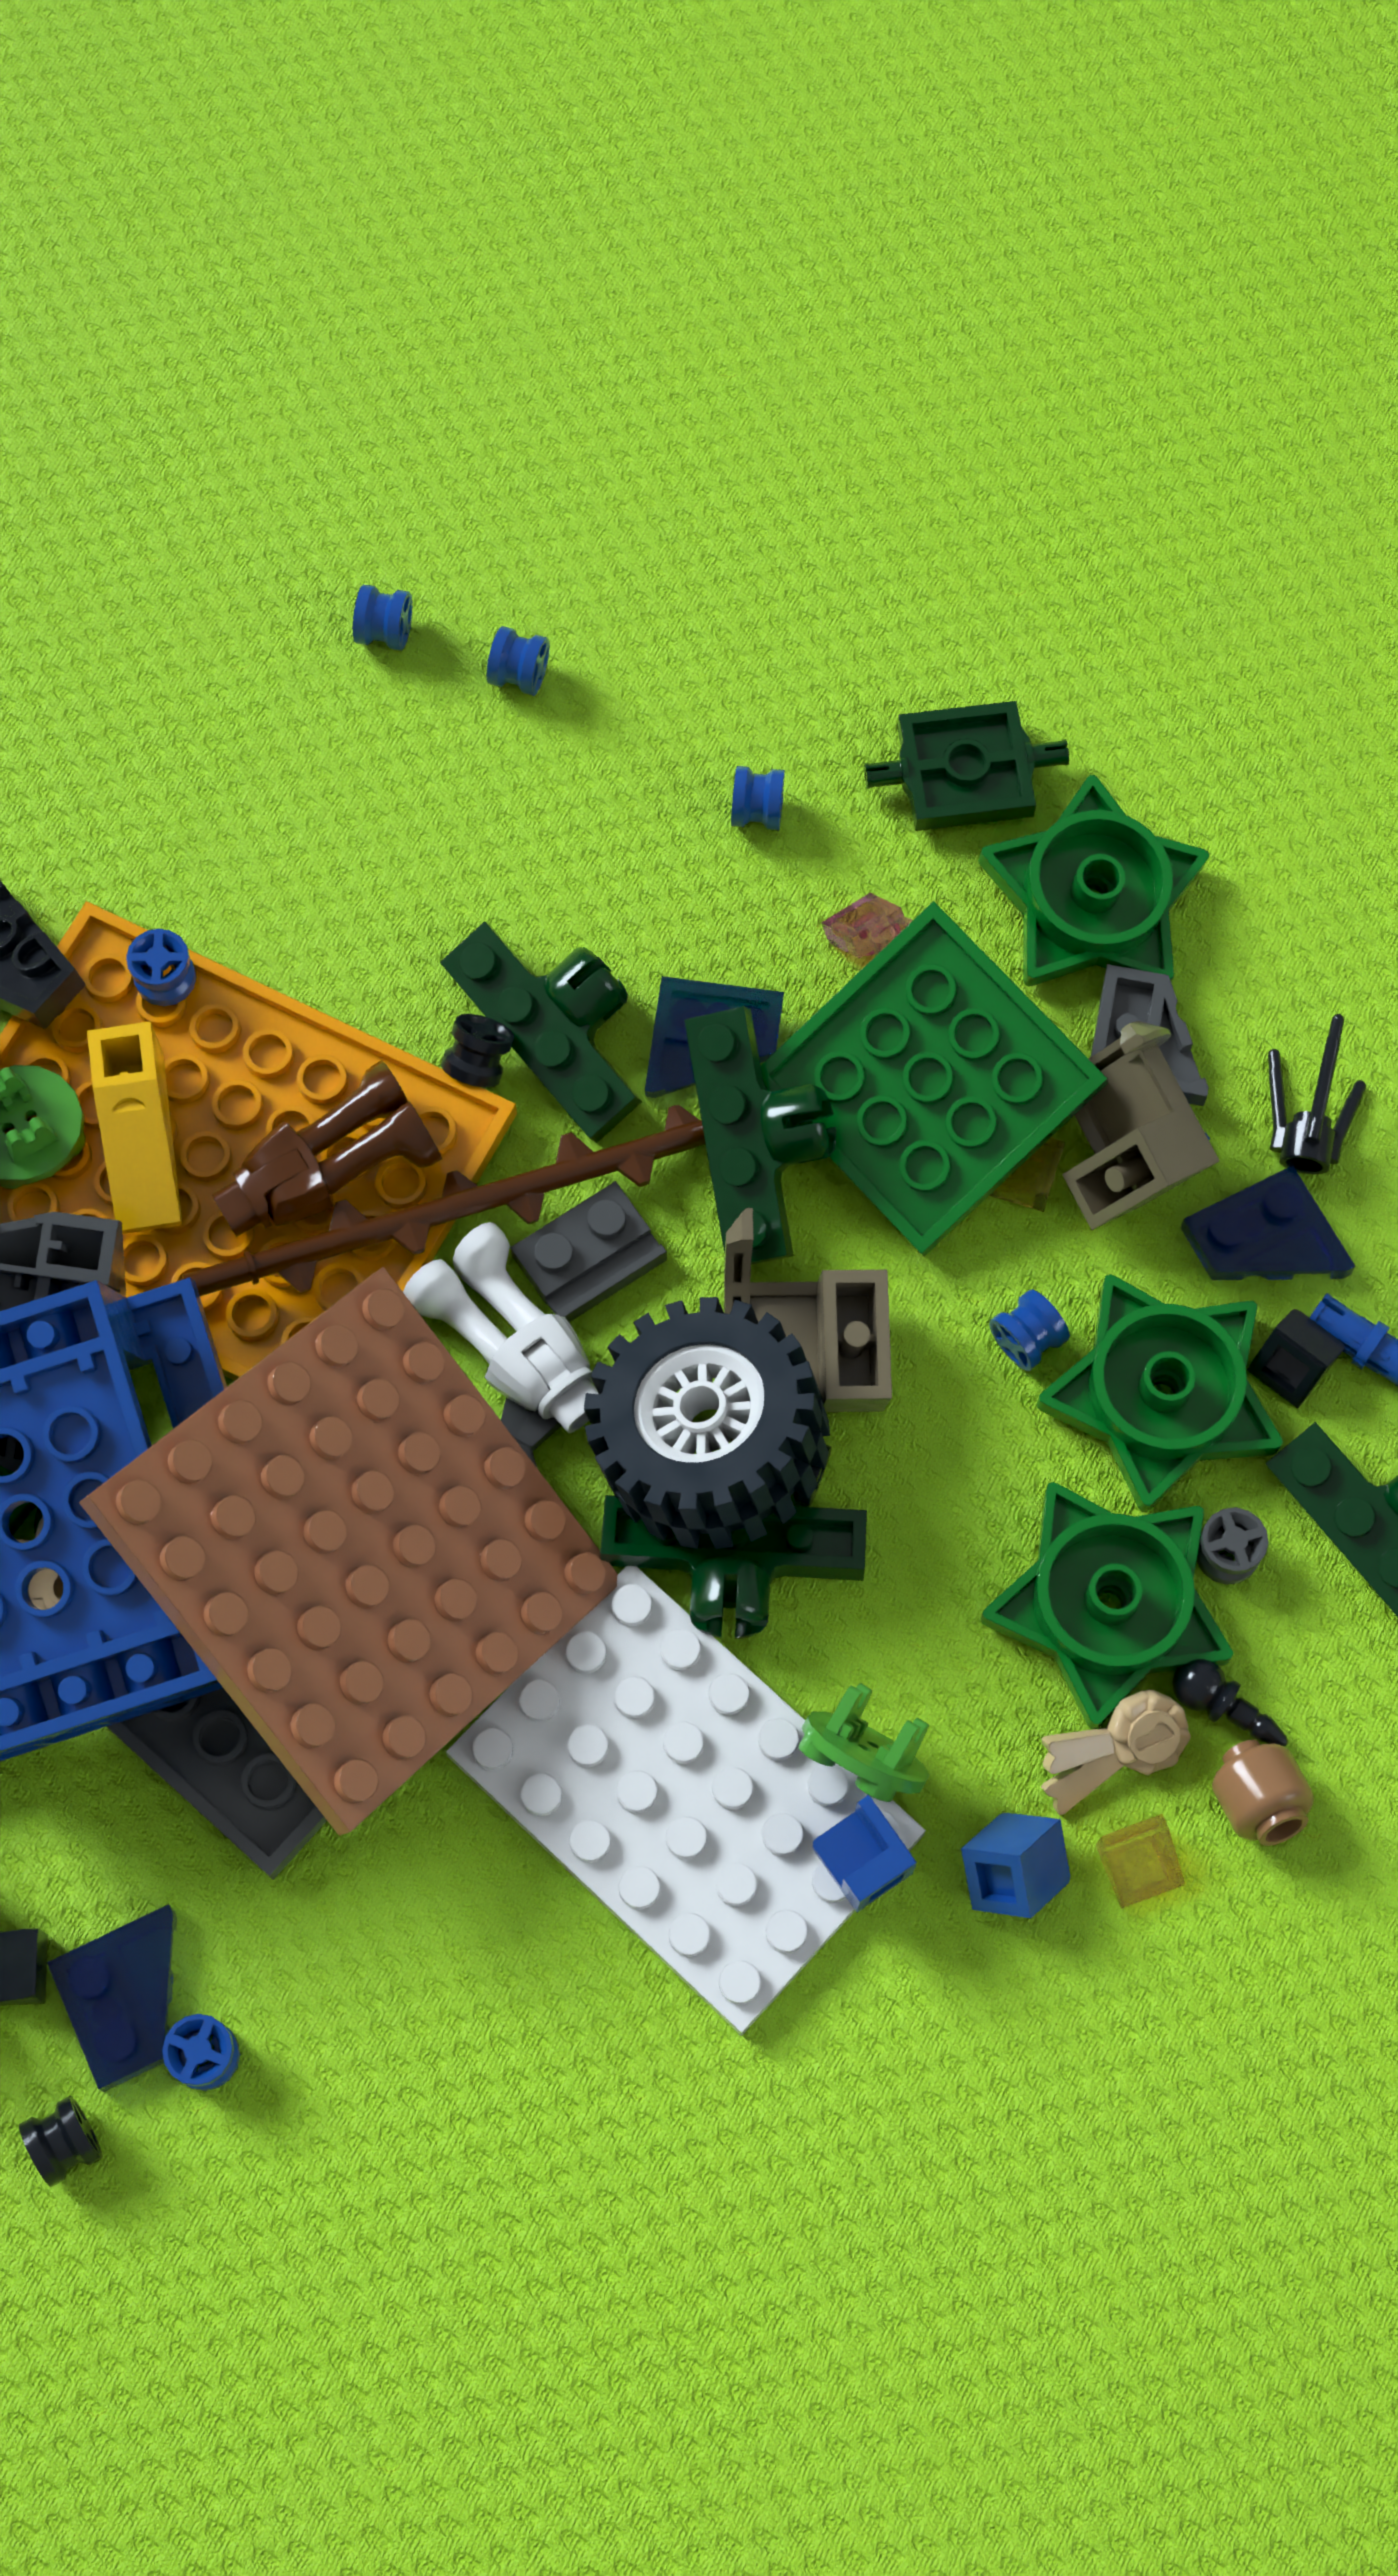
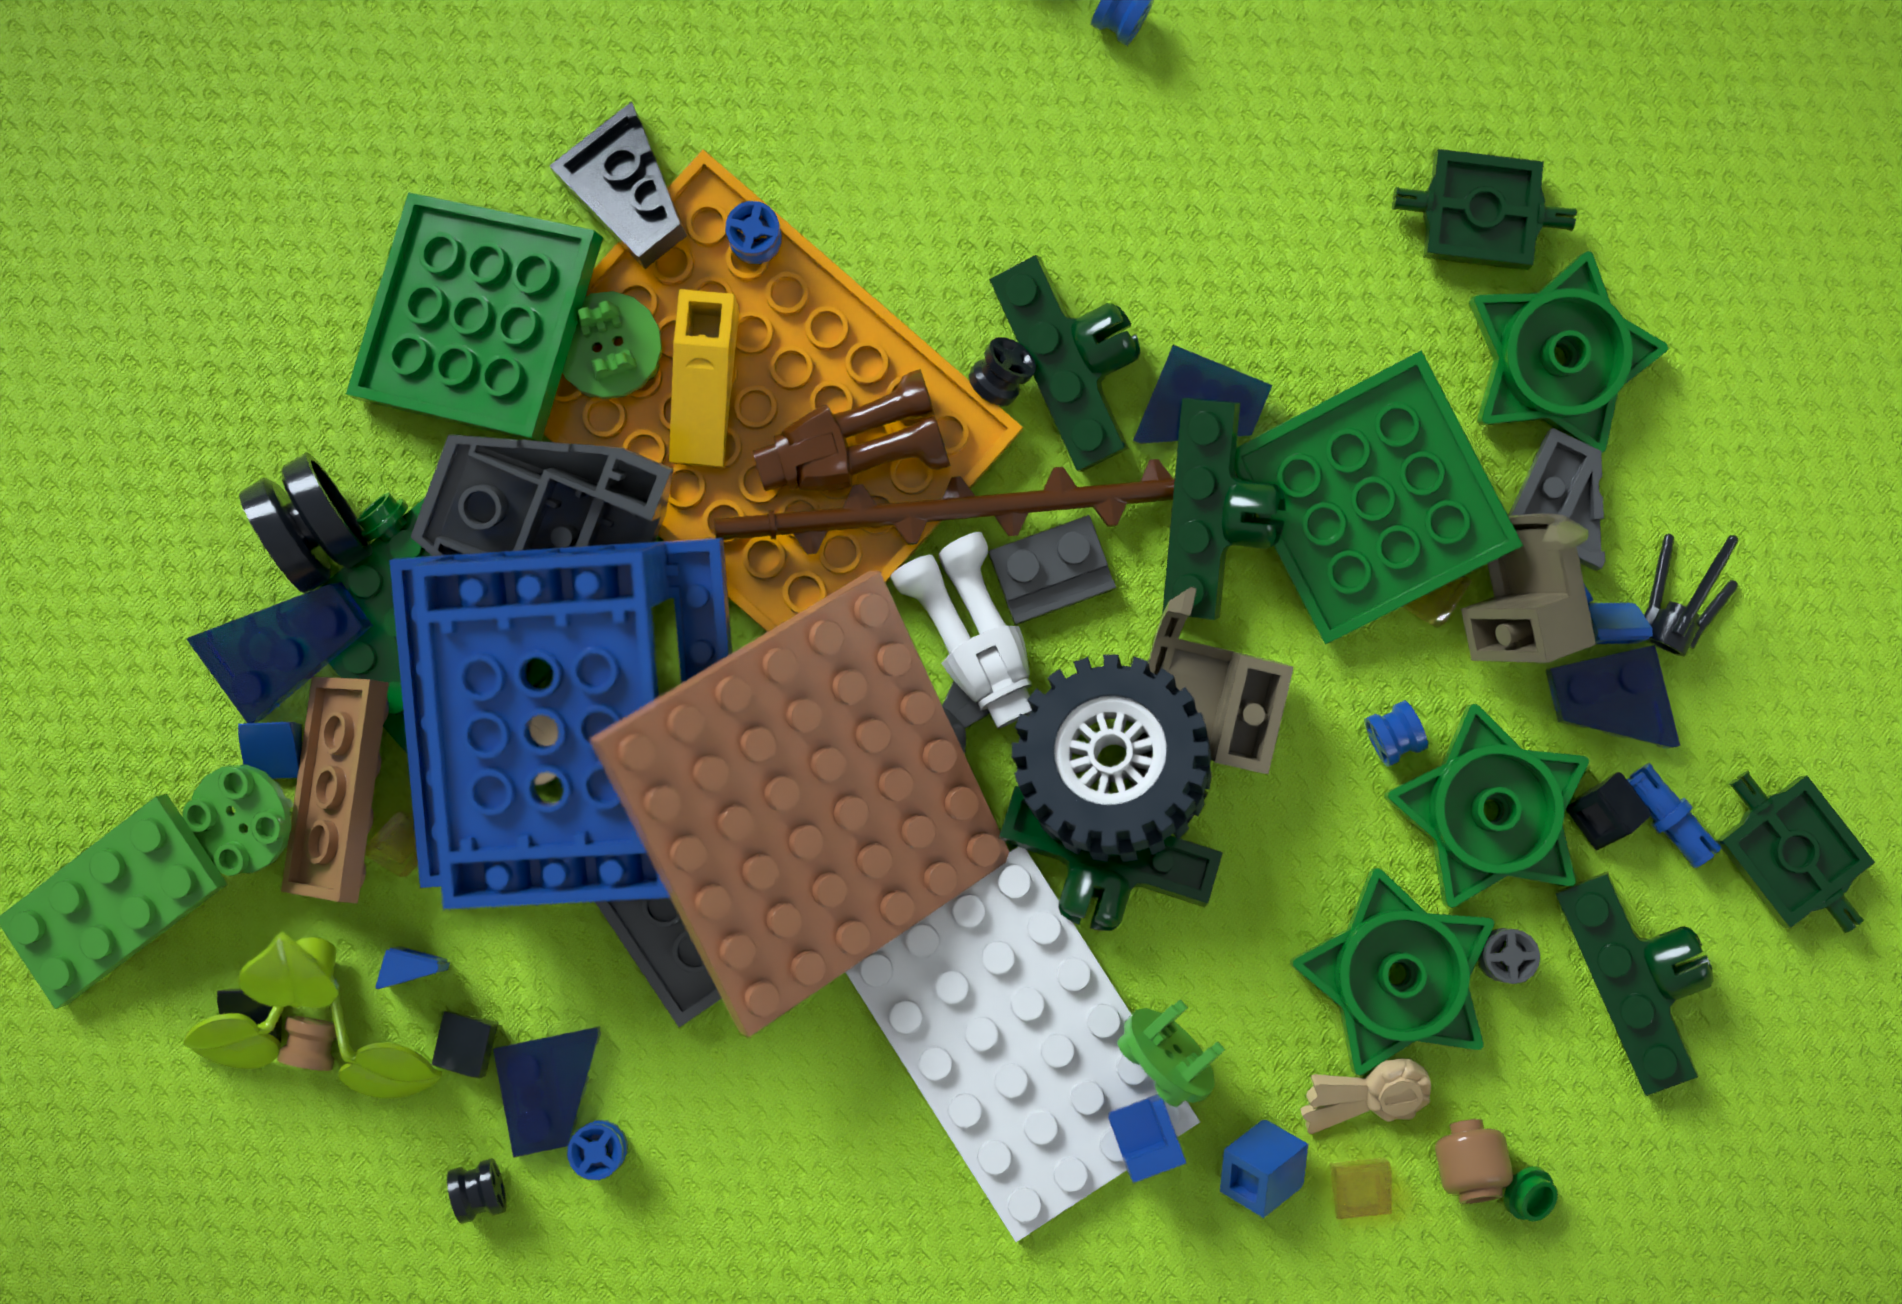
camera: 10 degrees right, 15 degrees up
(757, 798) = (1296, 196): blue wheel -> none
(865, 926) = (1360, 341): plate -> none
(1203, 1687) = (1453, 1065): black bar -> none
(1245, 1158) = (1619, 623): none -> blue slope
(1341, 1814) = (1531, 1194): none -> green plate

